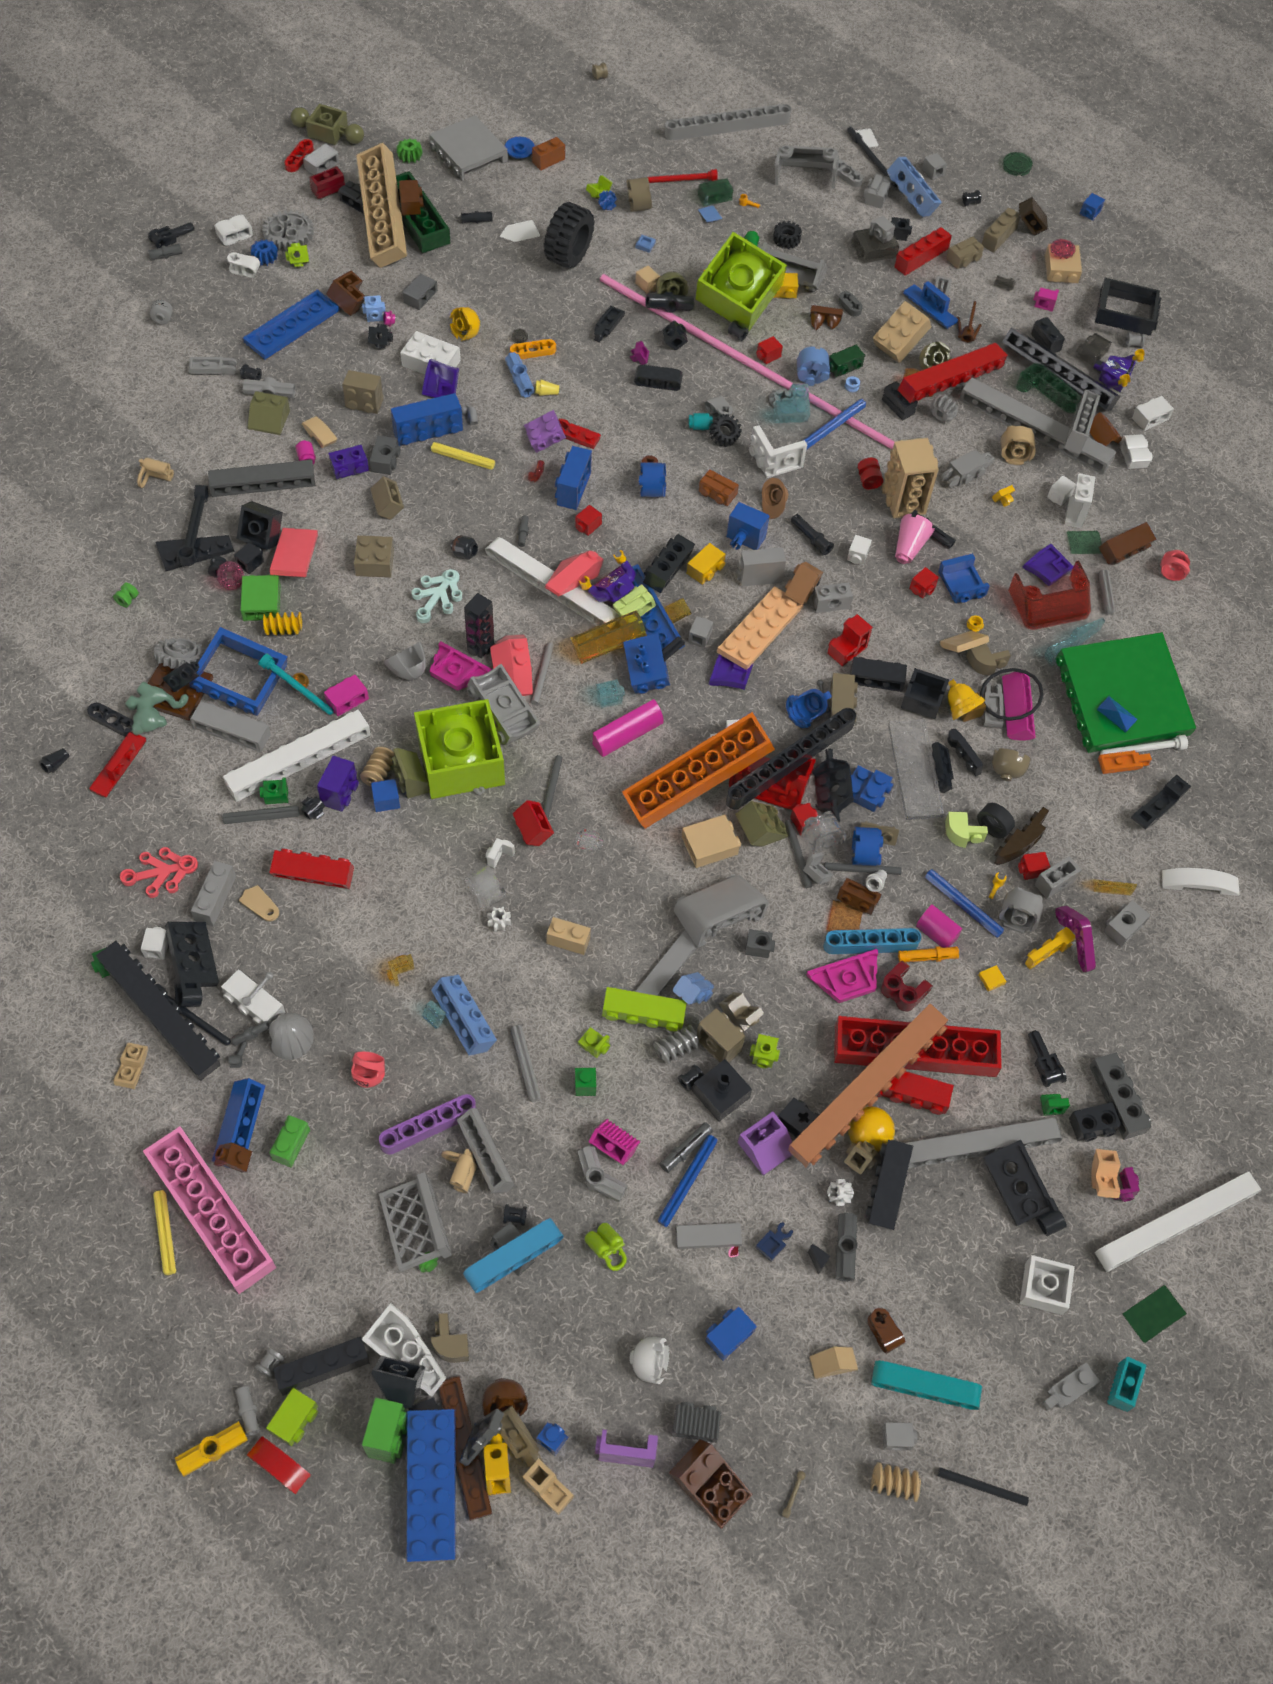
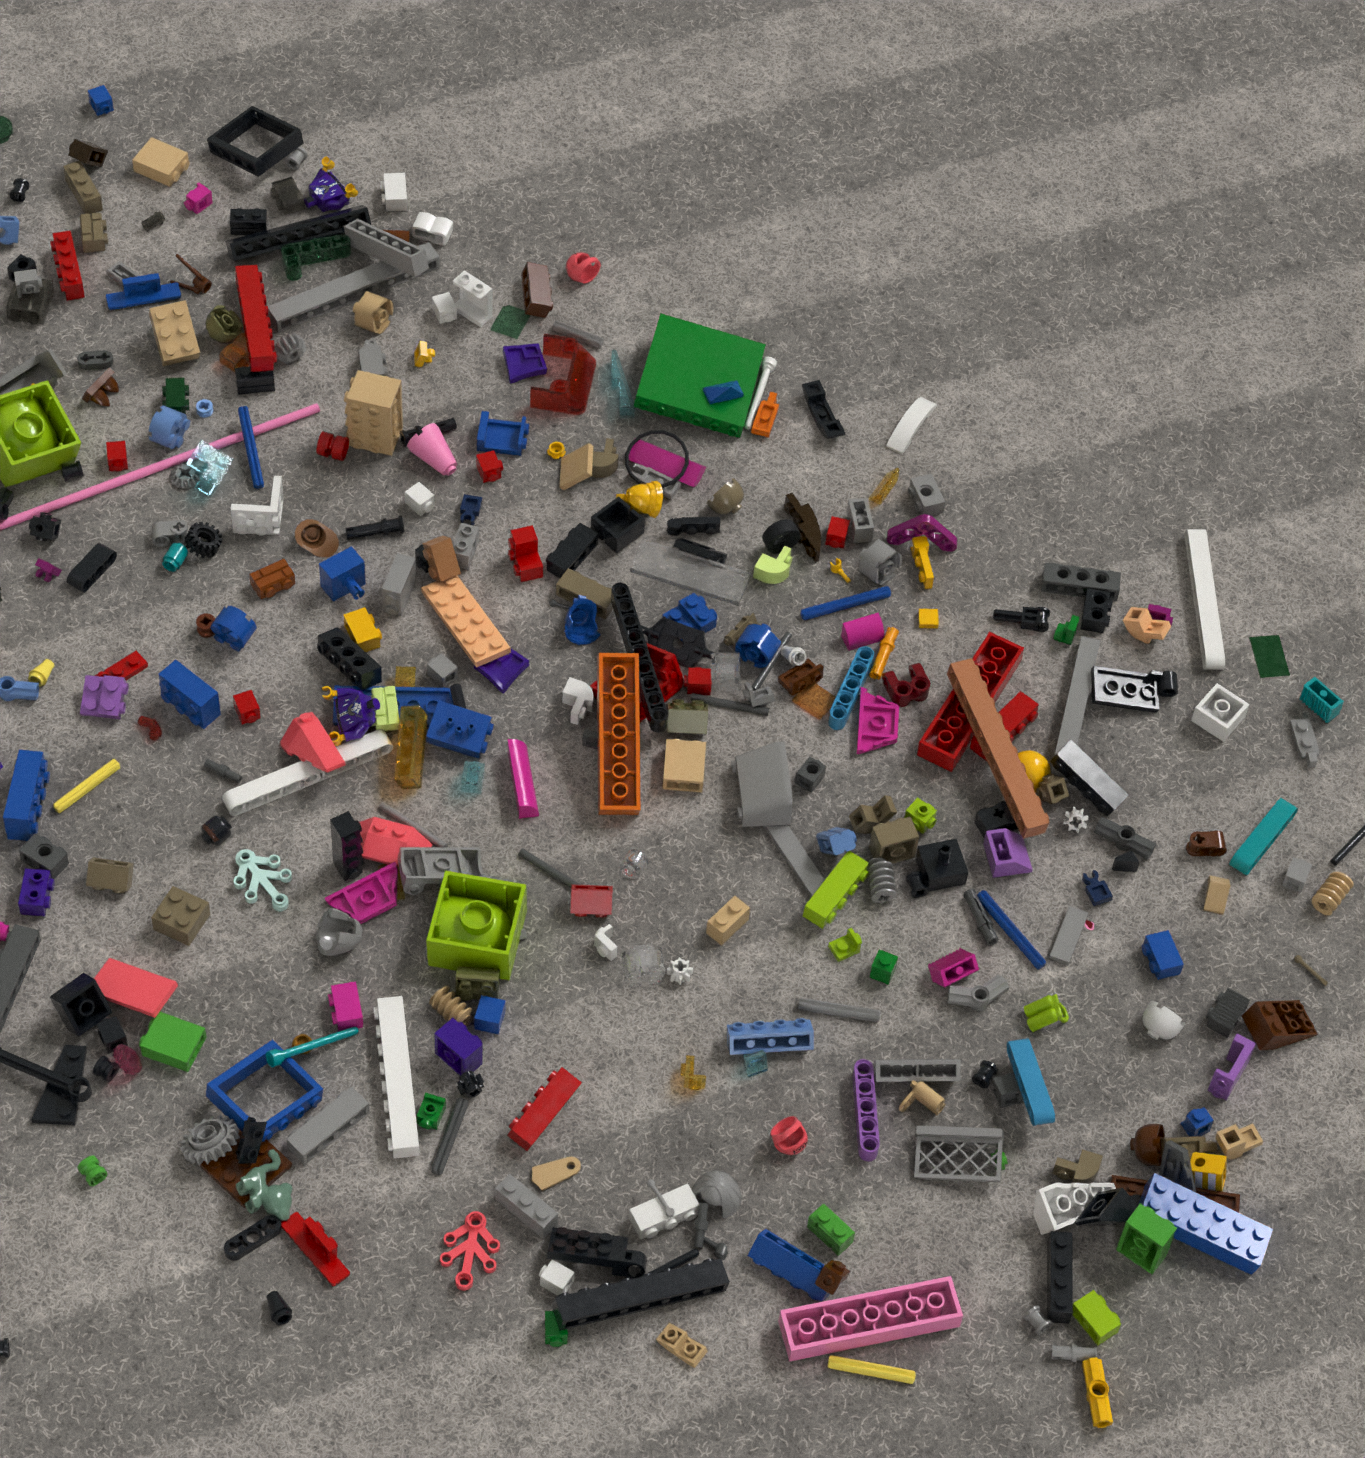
camera: 65 degrees left, 5 degrees down
(278, 1465) = (1137, 1338): red brick -> none
(282, 623) = (221, 1030): yellow piece -> none
(875, 587) = (470, 508): none -> dark blue plate
(1062, 244) = (155, 146): clear pink gear -> none

